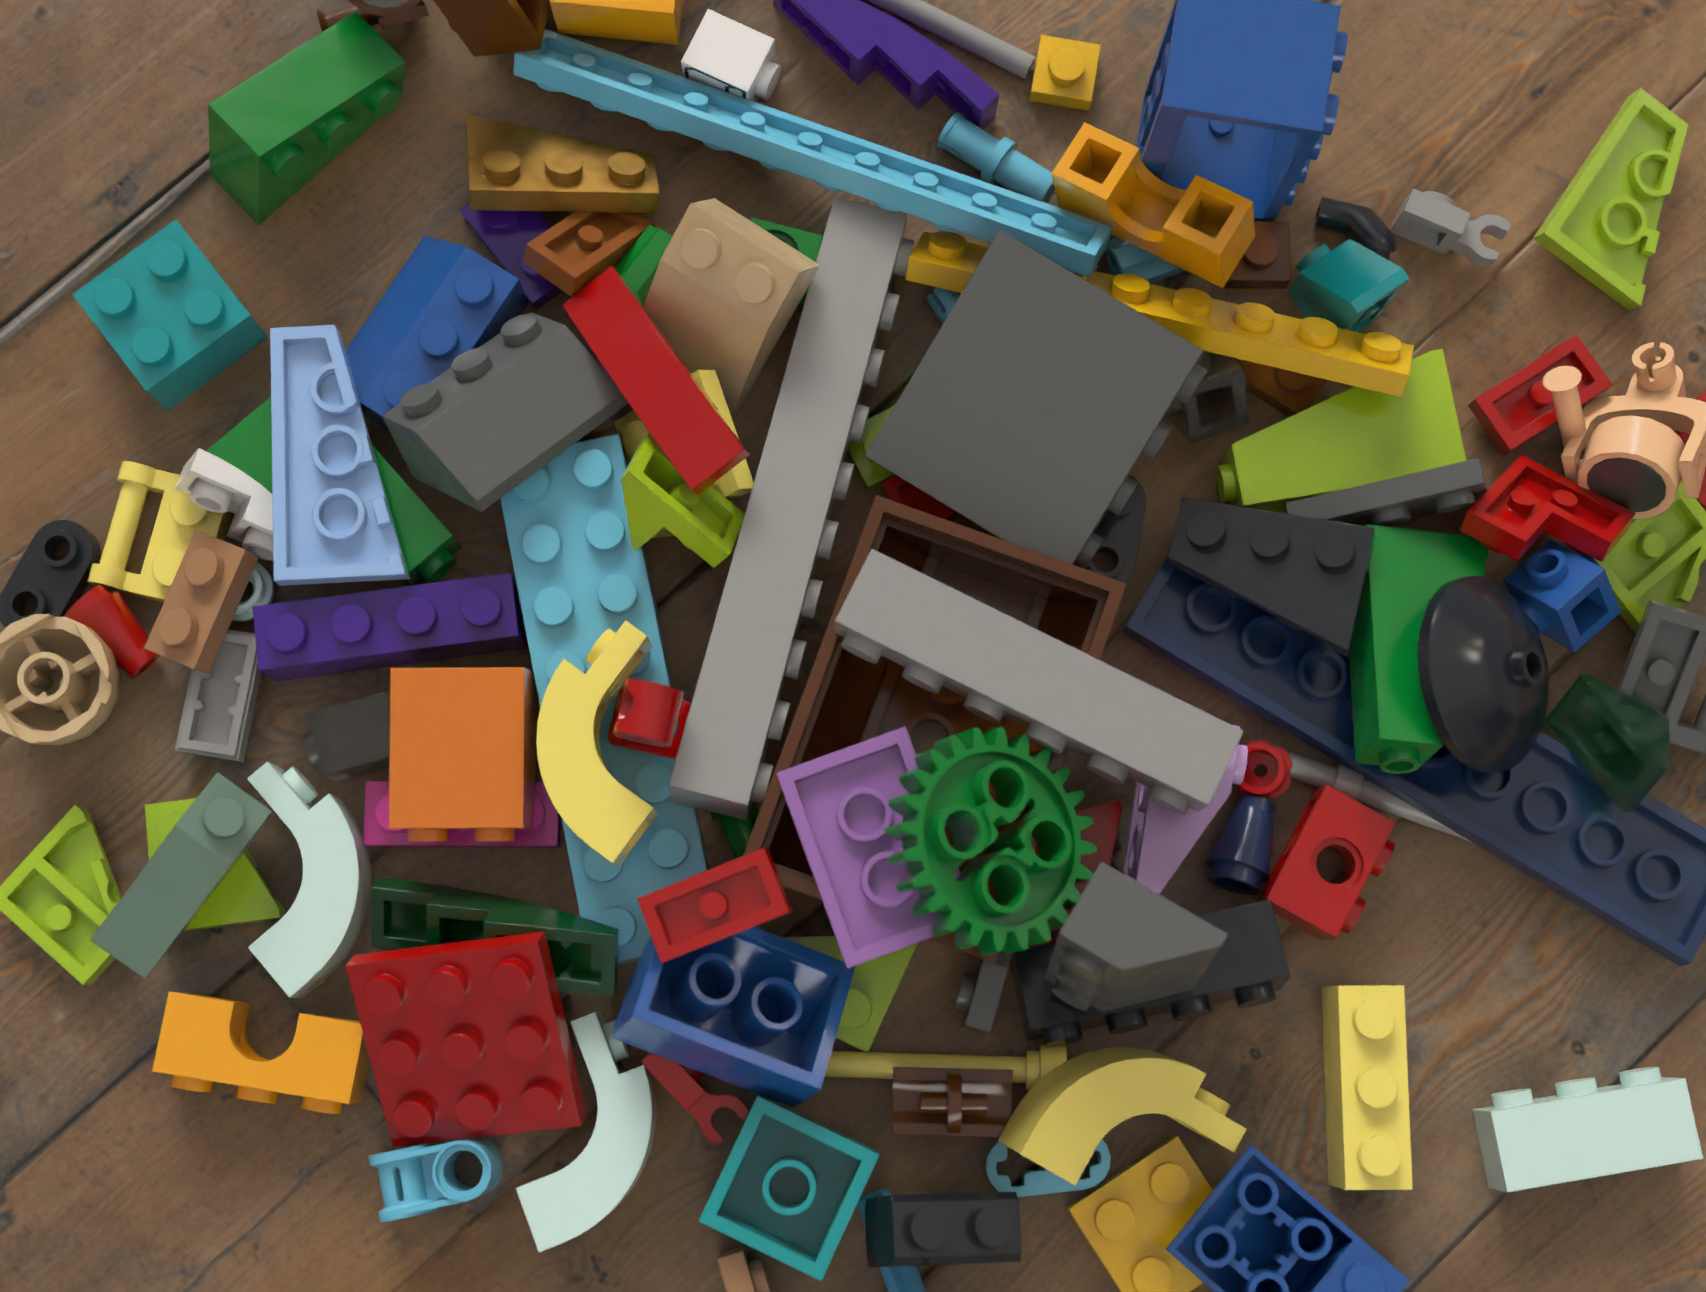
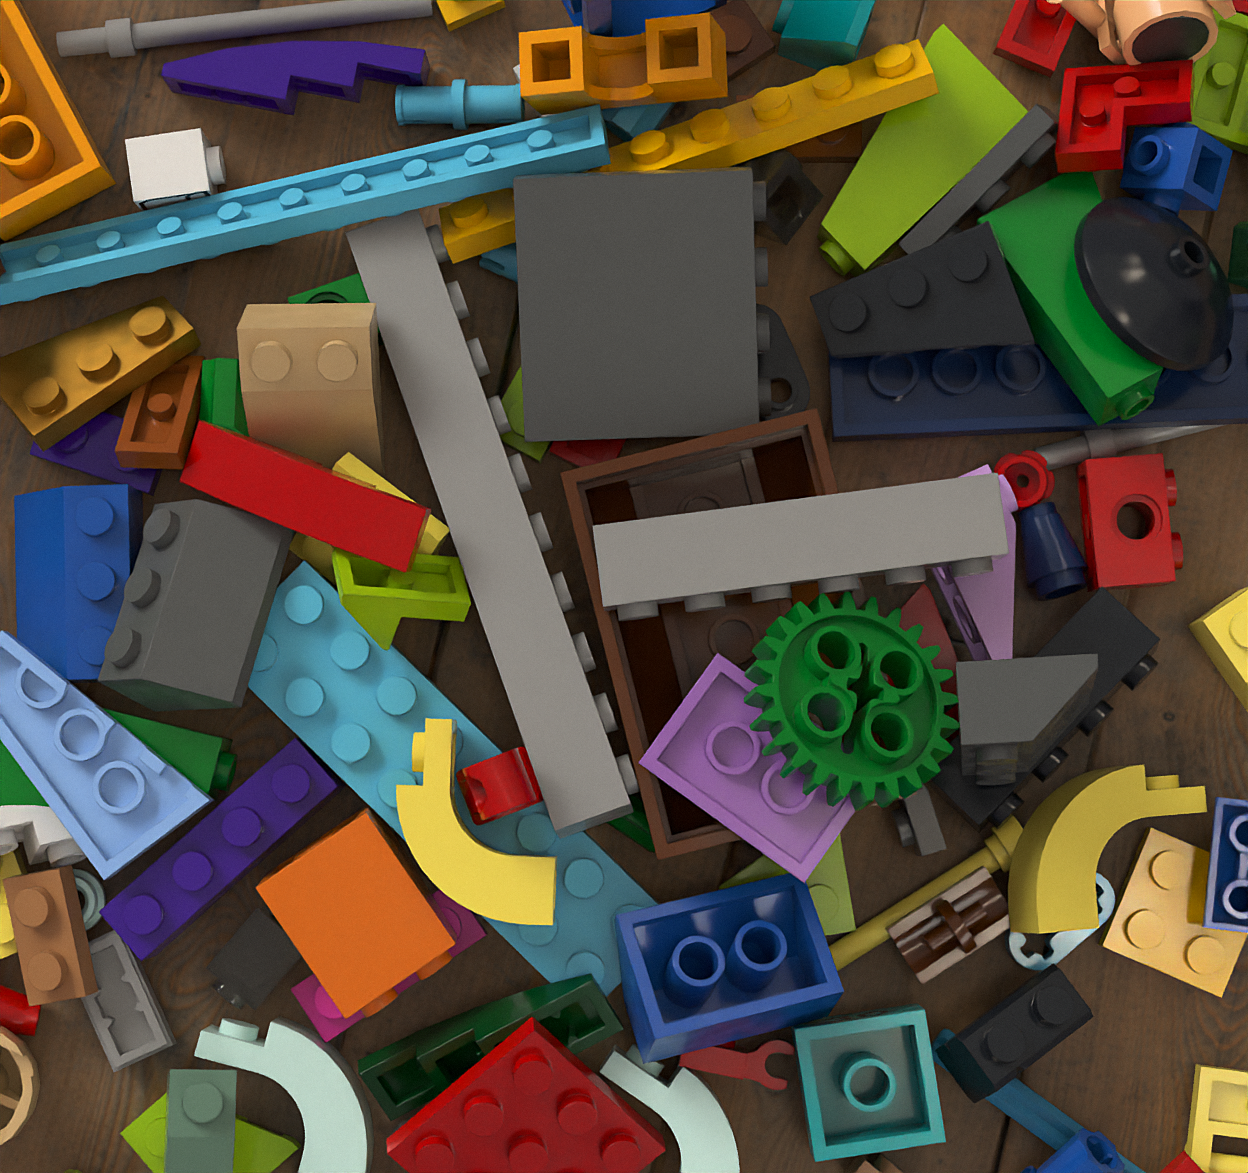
camera: 25 degrees left, 5 degrees up
(714, 904) = (660, 903): red plate -> none

